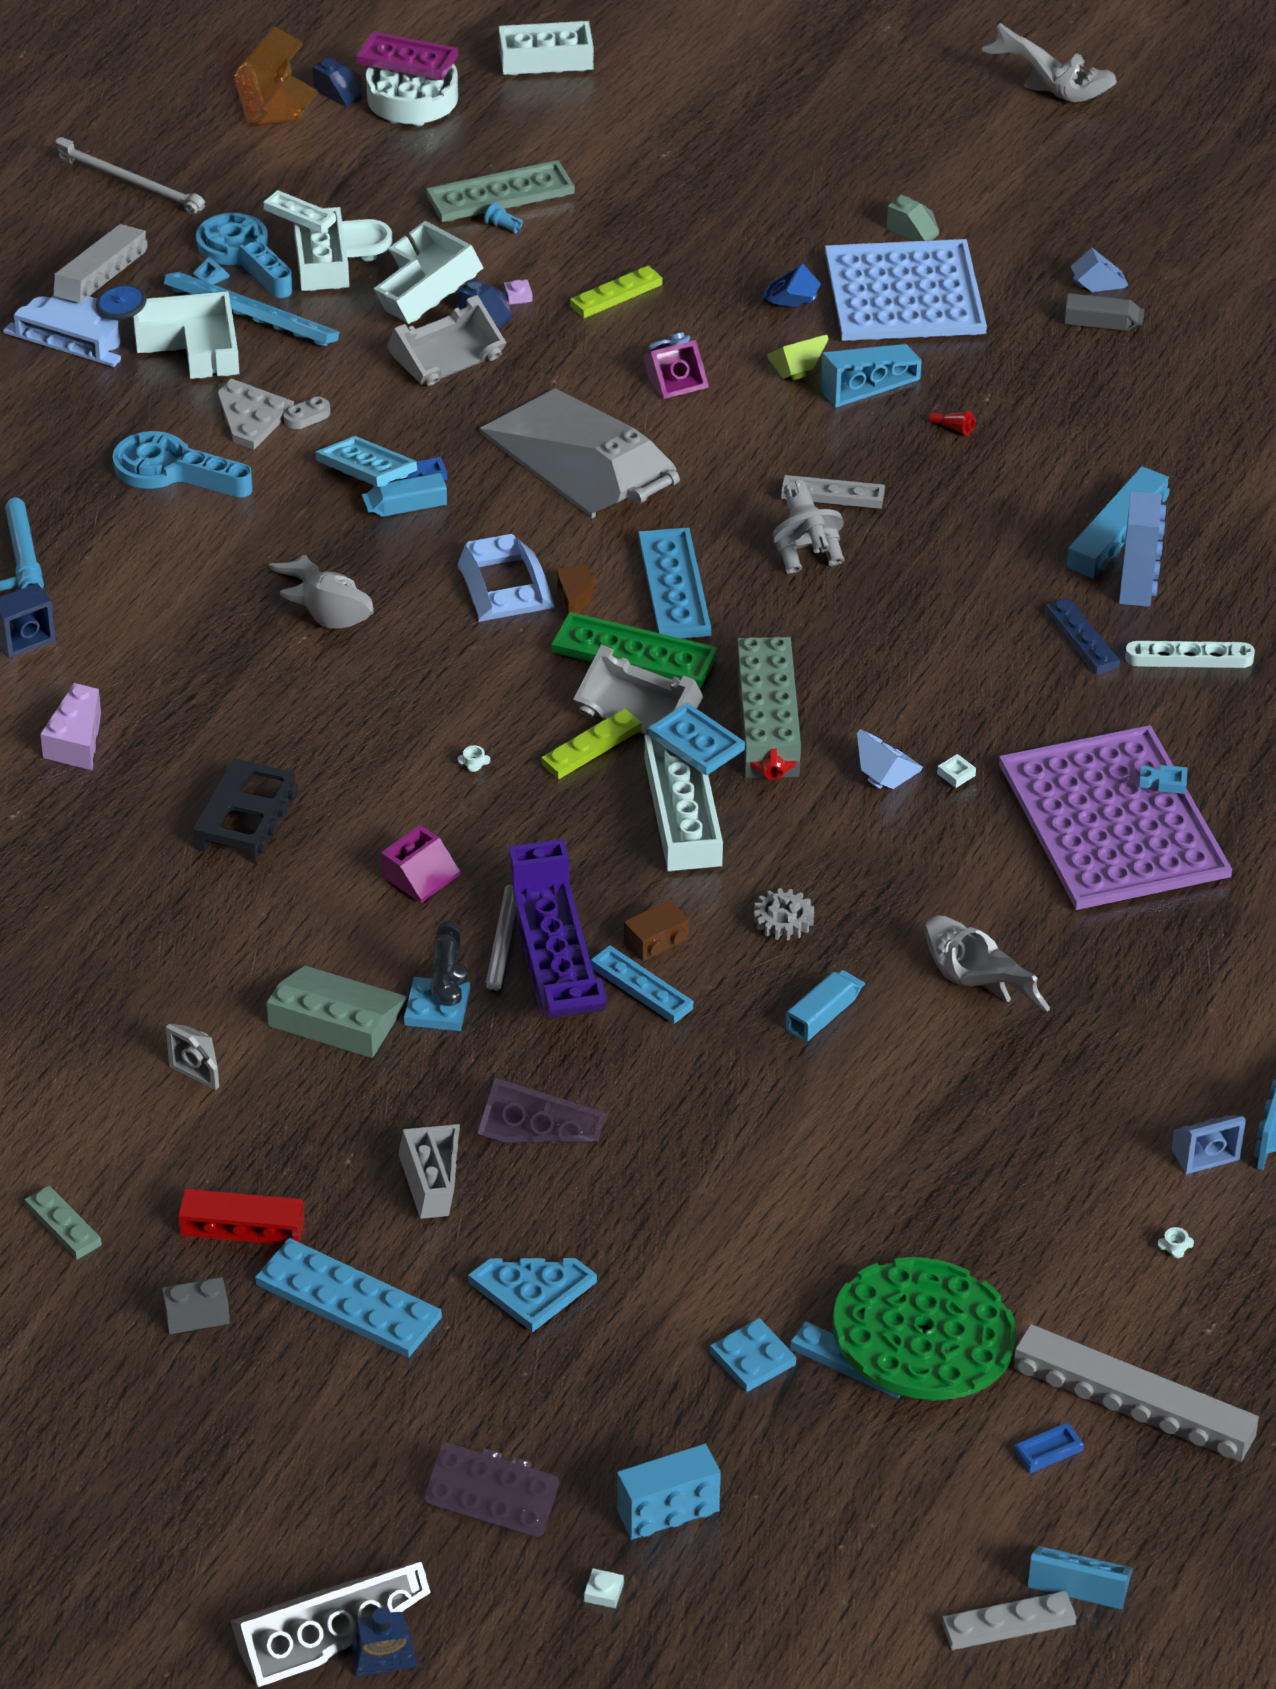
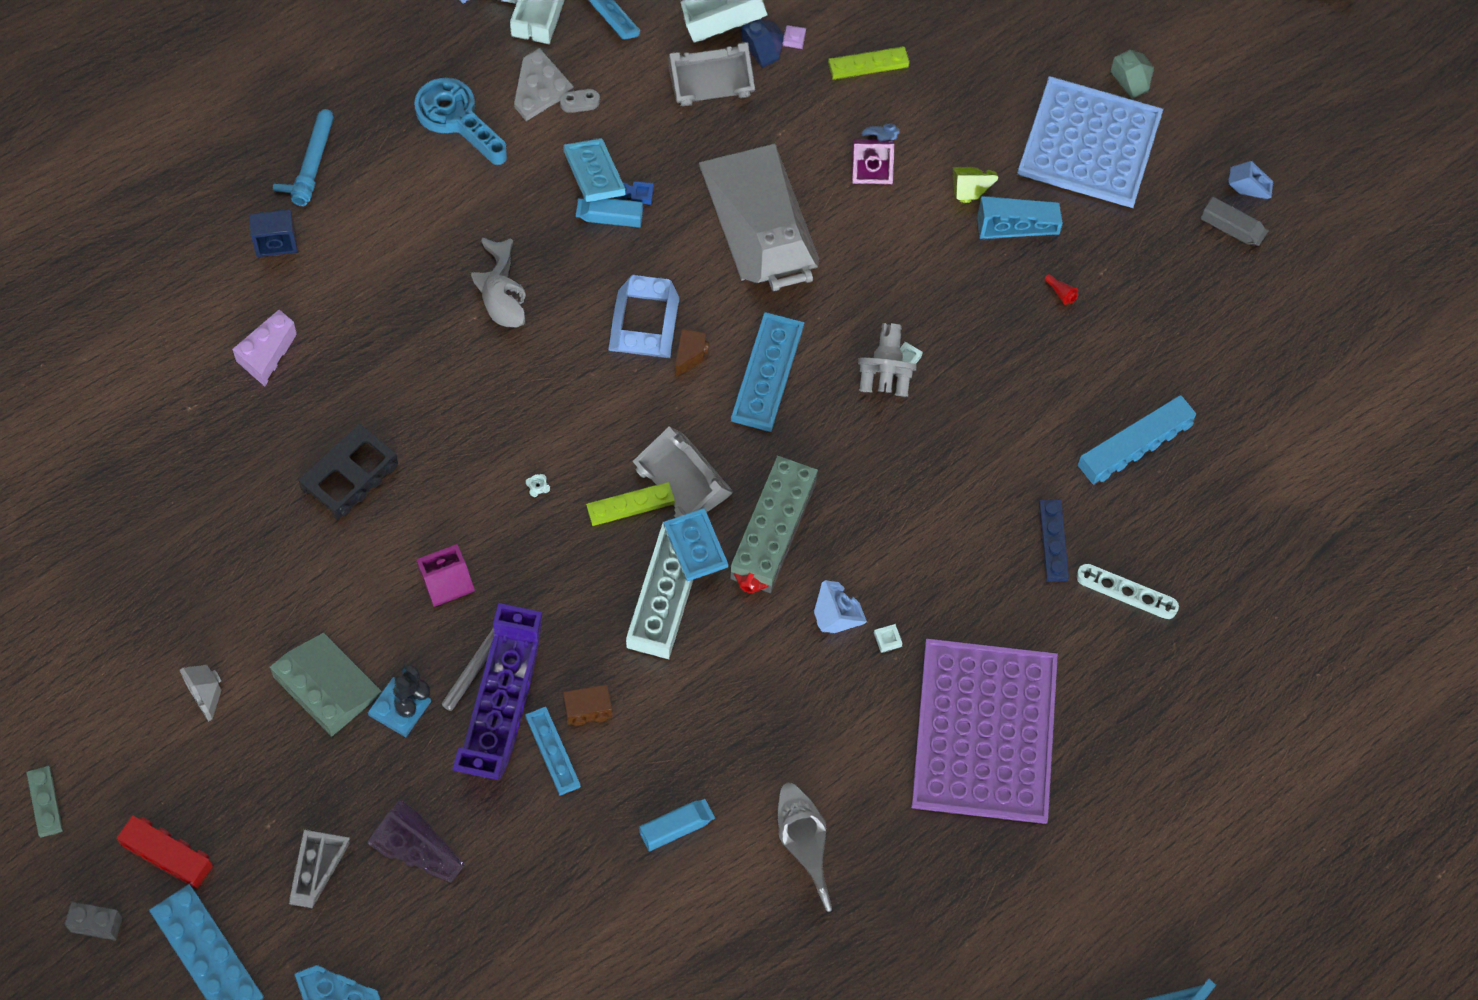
camera: 20 degrees right, 20 degrees up
(645, 649) = (706, 426): green plate -> none
(781, 914) = (678, 728): light grey gear -> none
(792, 288) = (1000, 111): blue slope -> none
(840, 491) = (932, 325): light grey plate -> none
(1142, 548) = (1129, 488): medium blue brick -> none
(1168, 778) = (1040, 716): dark azure plate -> none

